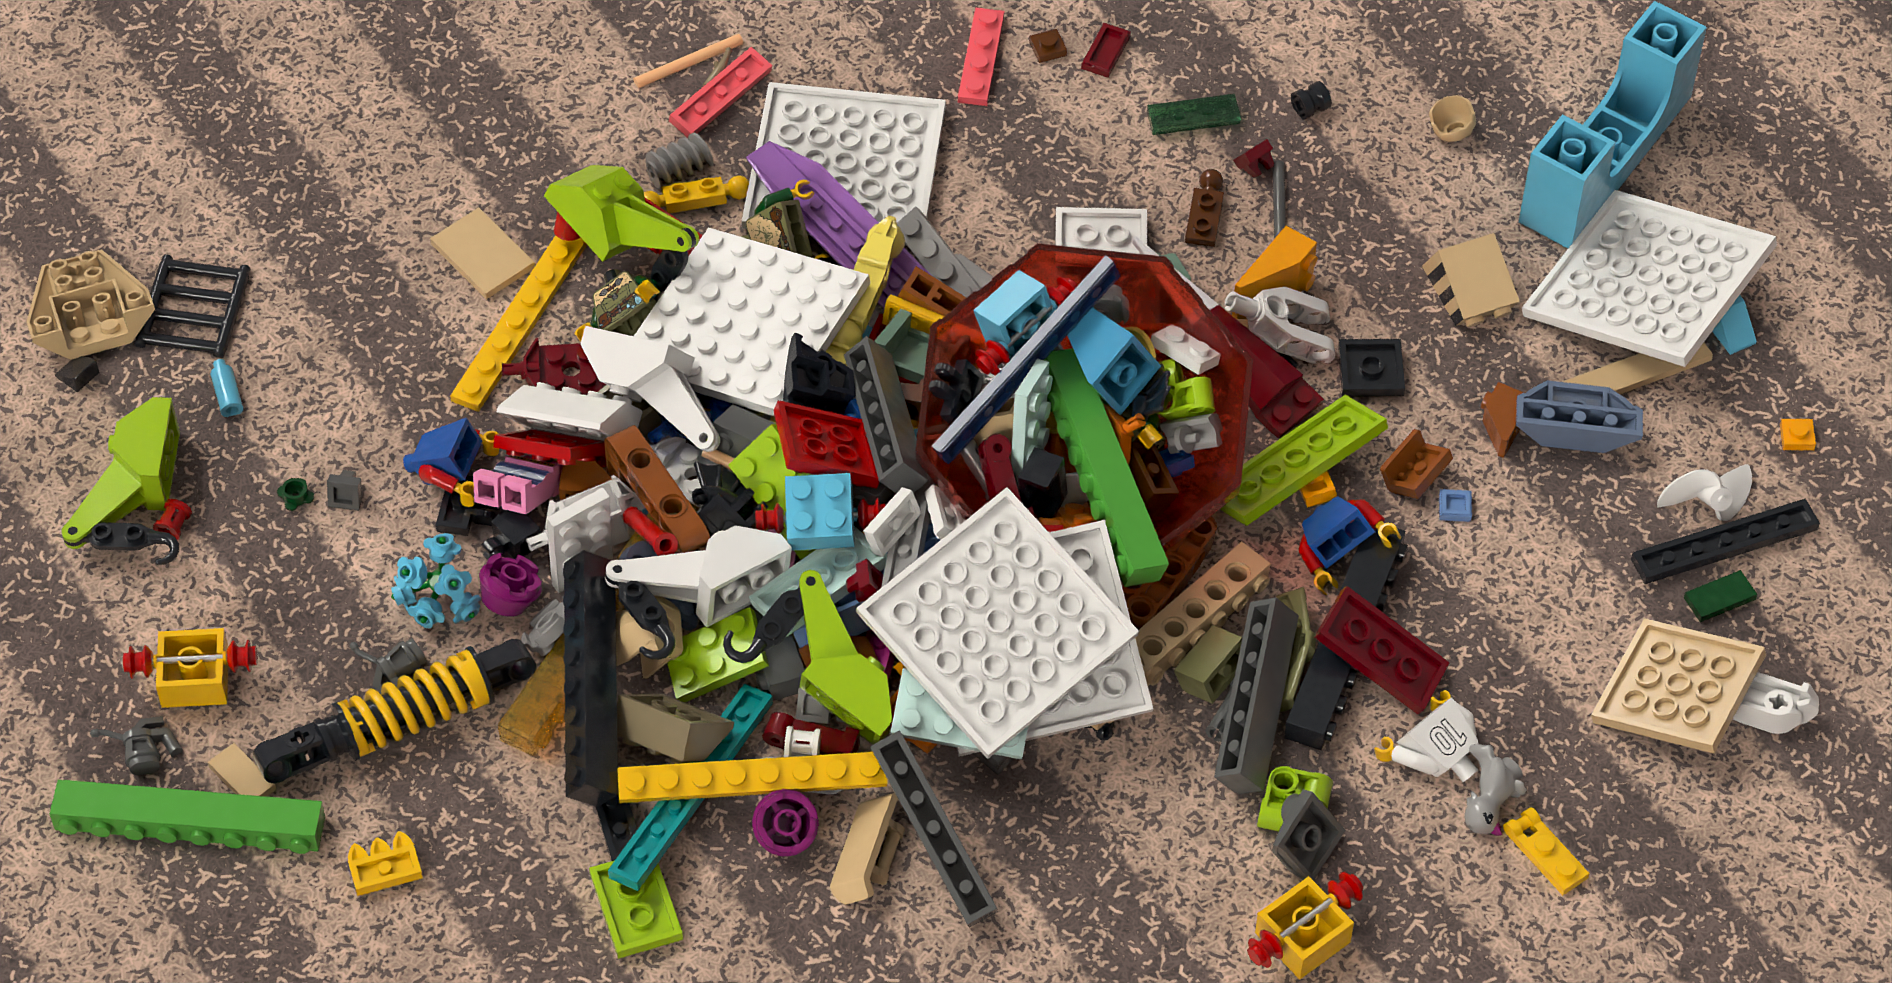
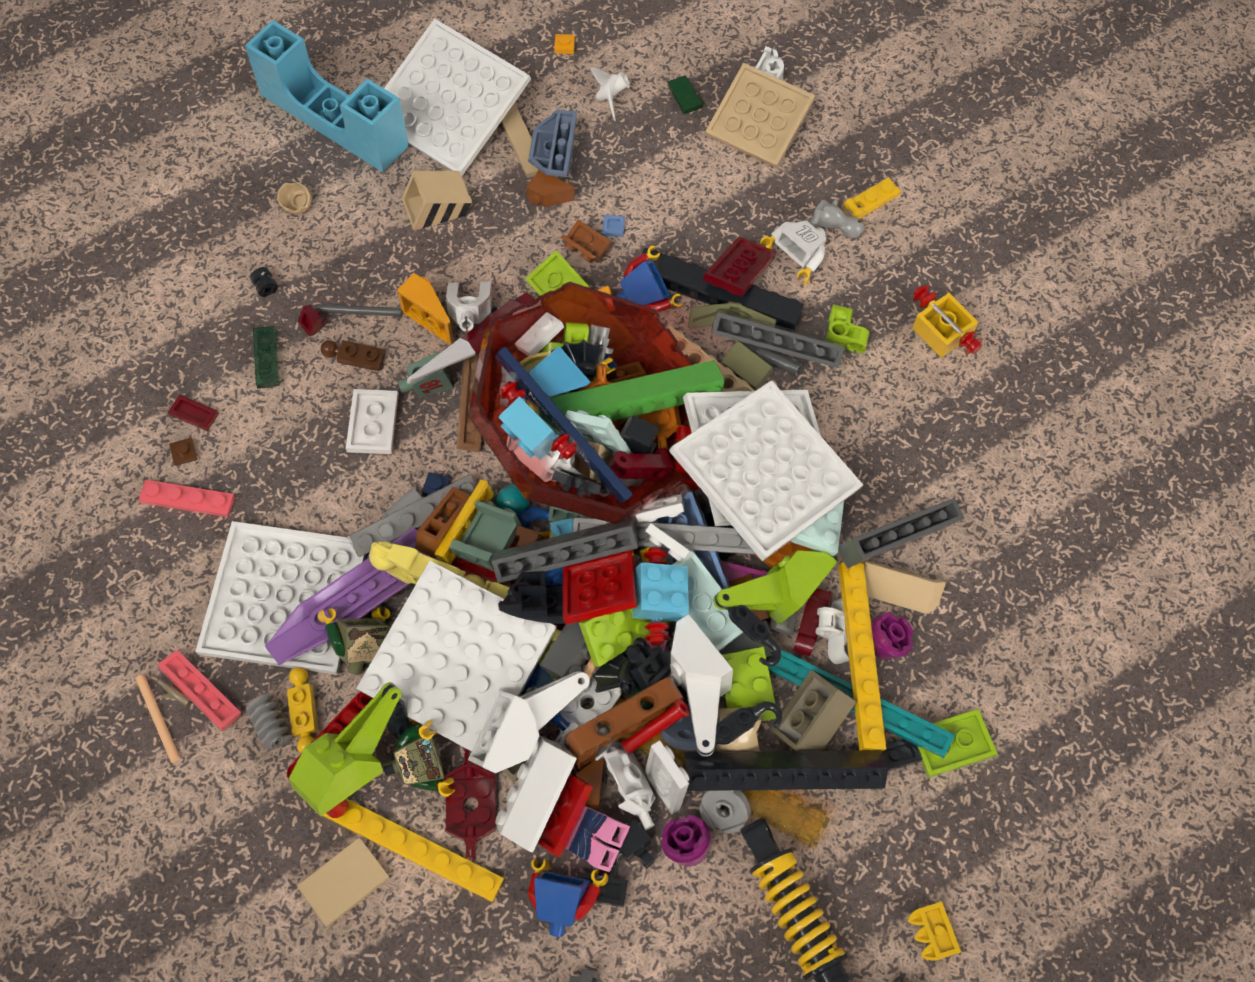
camera: 90 degrees left, 10 degrees up
(400, 661) = (750, 930): dark grey piece -> none
(443, 580) = (689, 910): medium azure plant -> none
(865, 580) = (716, 562): dark red tile -> none
(1306, 835) = (872, 317): dark grey slope -> none
(1371, 367) = (502, 262): black plate -> none
(1725, 541) = (646, 87): black plate -> none

